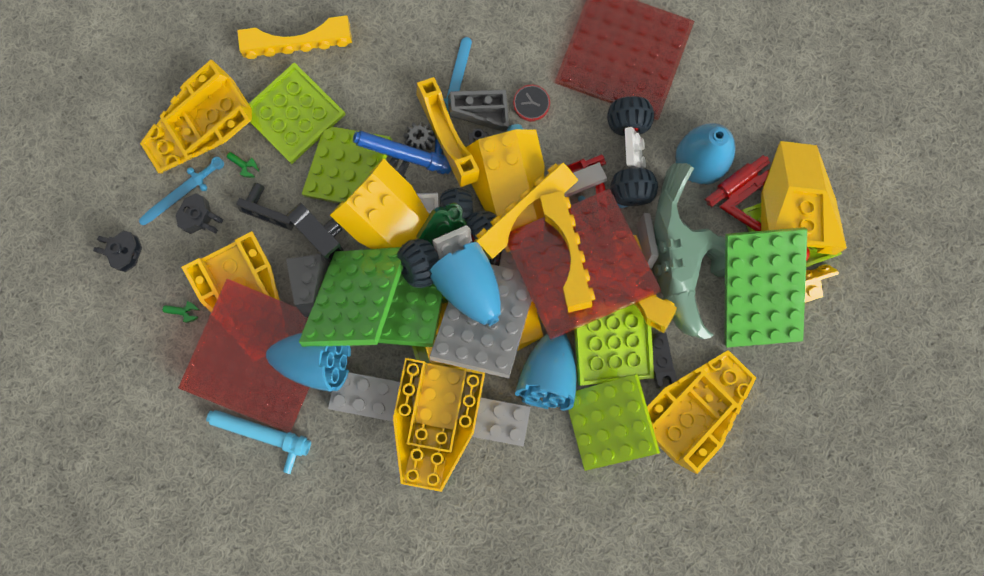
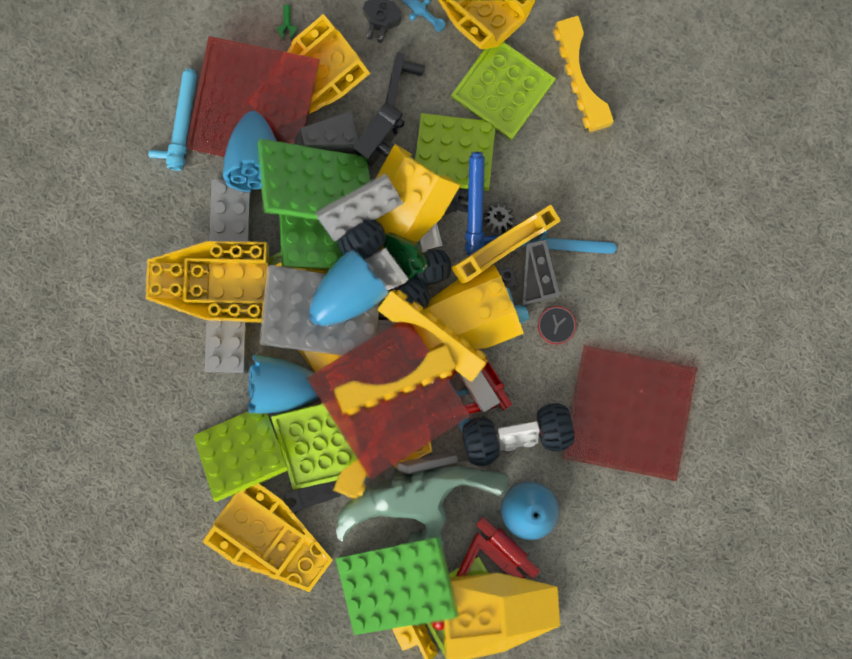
camera: 80 degrees right, 5 degrees up
(241, 163) = (442, 50): green bar -> none
(386, 253) = (364, 203): none -> light grey plate

